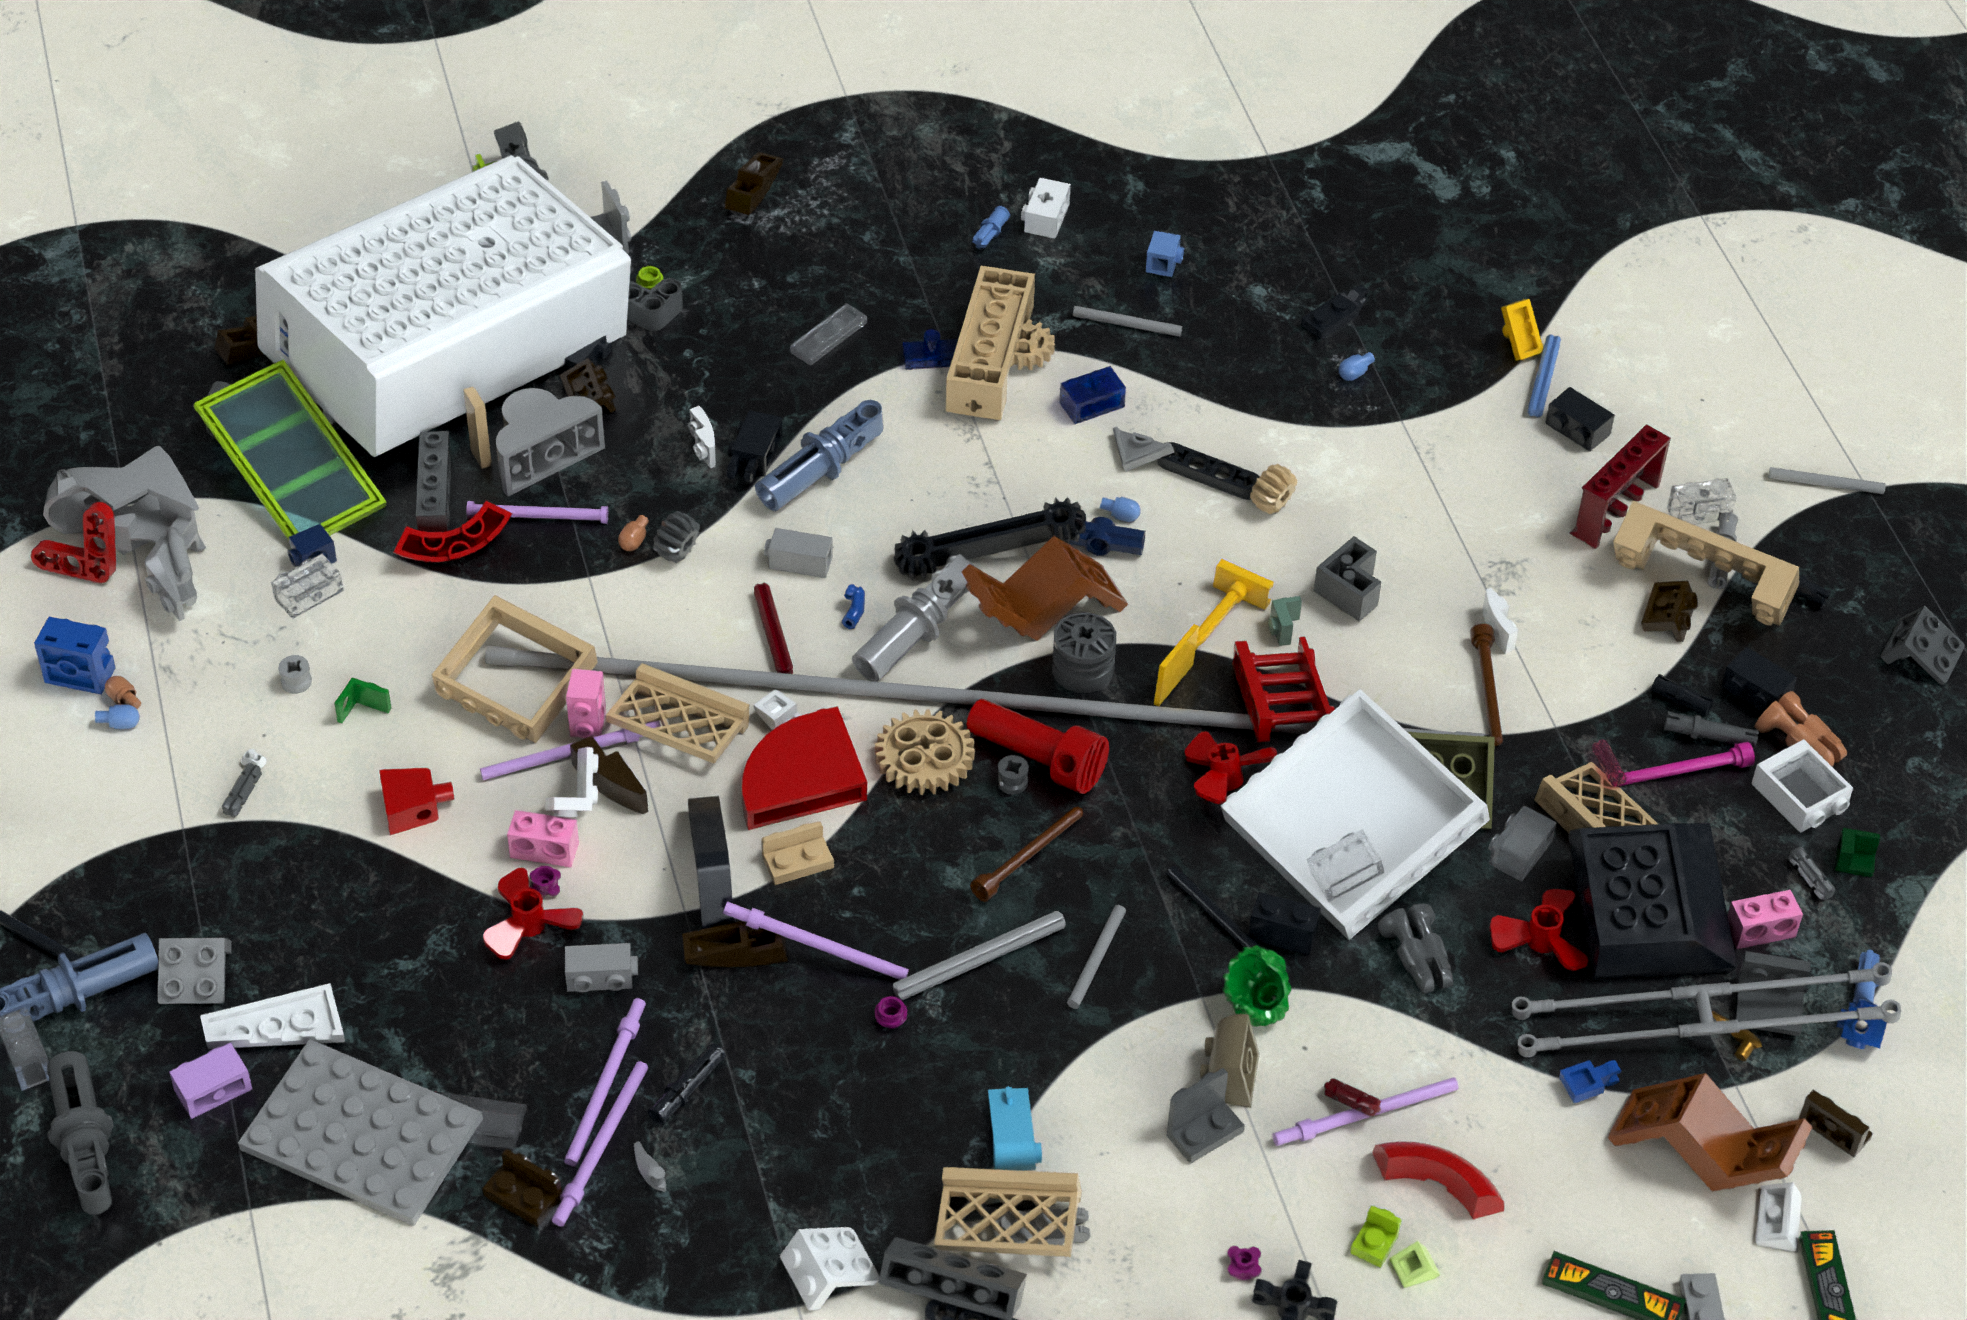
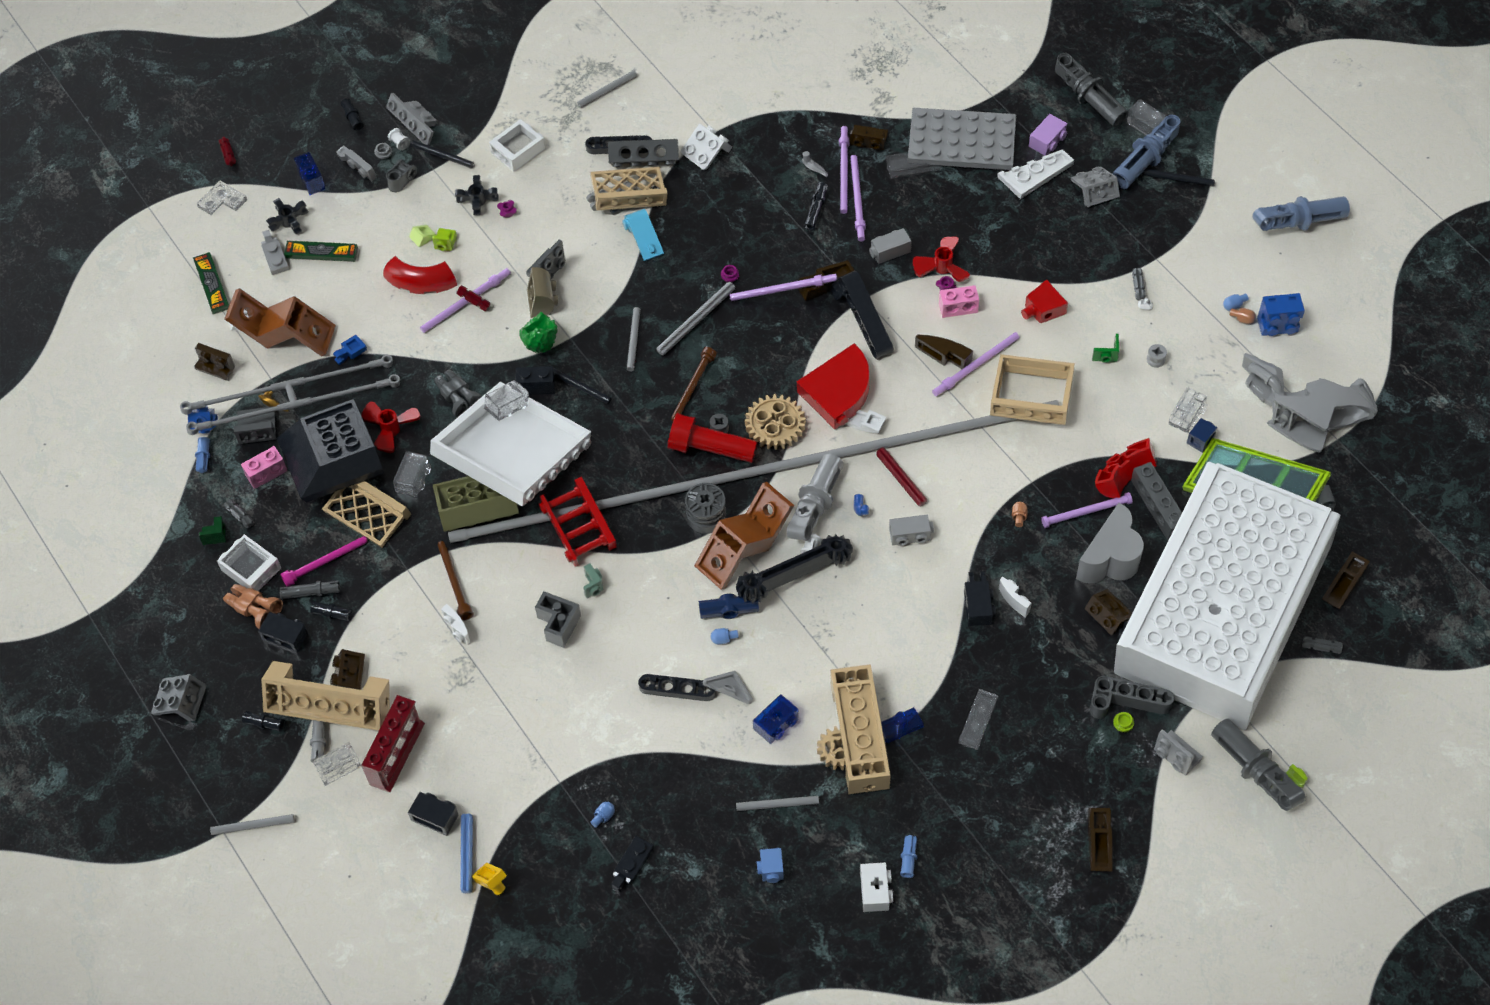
camera: 165 degrees right, 10 degrees up
(86, 556) = (1325, 372): red beam -> none
(477, 427) = (1152, 529): tan tile -> none
(586, 703) = (978, 377): bright pink brick -> none
(586, 792) = (954, 318): white bracket -> none
(676, 536) = (988, 508): dark grey gear -> none
(687, 699) = (924, 410): tan fence -> none
(796, 853) = (818, 342): tan bracket -> none
(821, 455) = (930, 602): sand blue piece -> none
(1224, 764) = (579, 467): red piece -> none
(1238, 585) = (626, 595): yellow piece -> none
(1273, 488) = (626, 672): tan gear -> none
(1609, 763) = (369, 544): clear pink axle -> none

